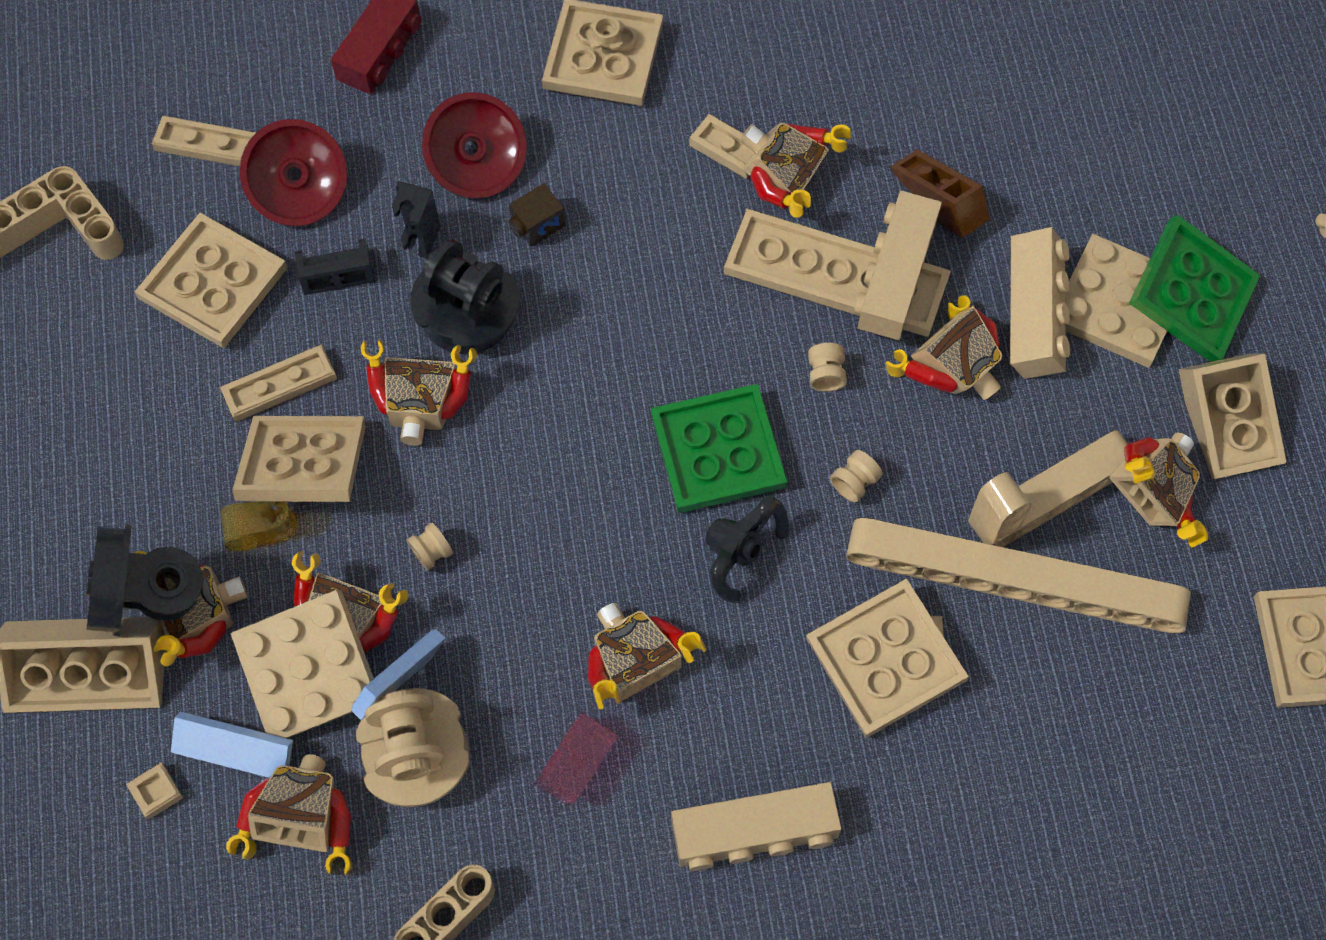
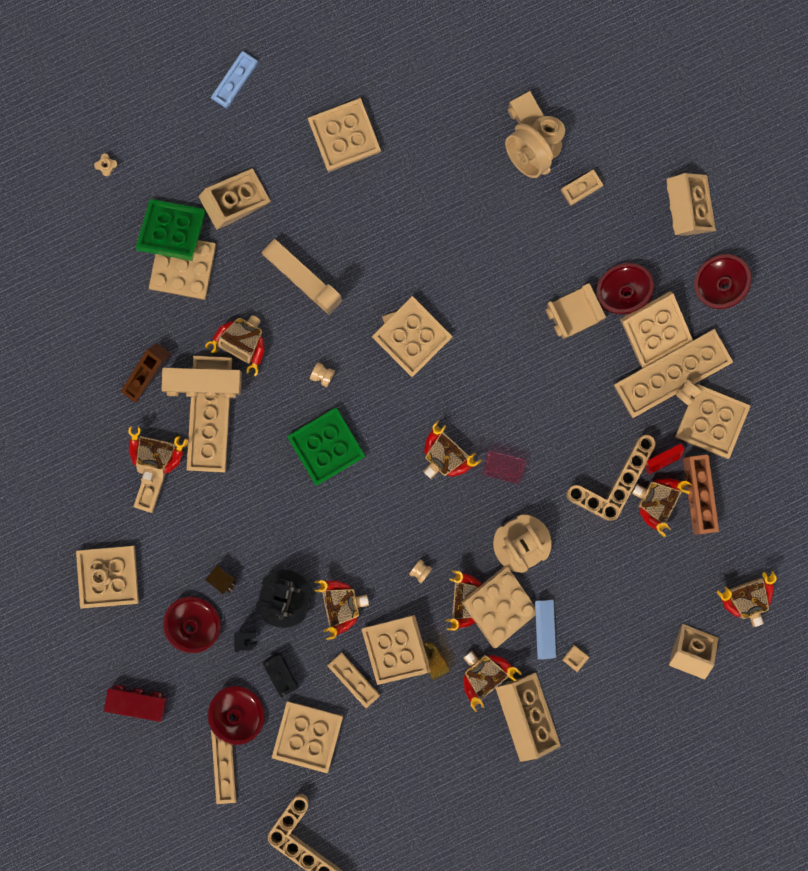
camera: 100 degrees left, 20 degrees up
(130, 579) = (493, 702): black piece -> none
(296, 810) = (566, 586): torso -> none
(398, 672) = (492, 560): light blue tile -> none
(741, 542) = (376, 420): black piece -> none
(755, 826) = (510, 376): tan brick -> none
(827, 367) = (266, 404): tan wheel -> none
(1019, 575) = (351, 285): tan beam -> none
(1039, 303) = (200, 307): tan brick -> none
(1161, 484) = (286, 225): torso -> none

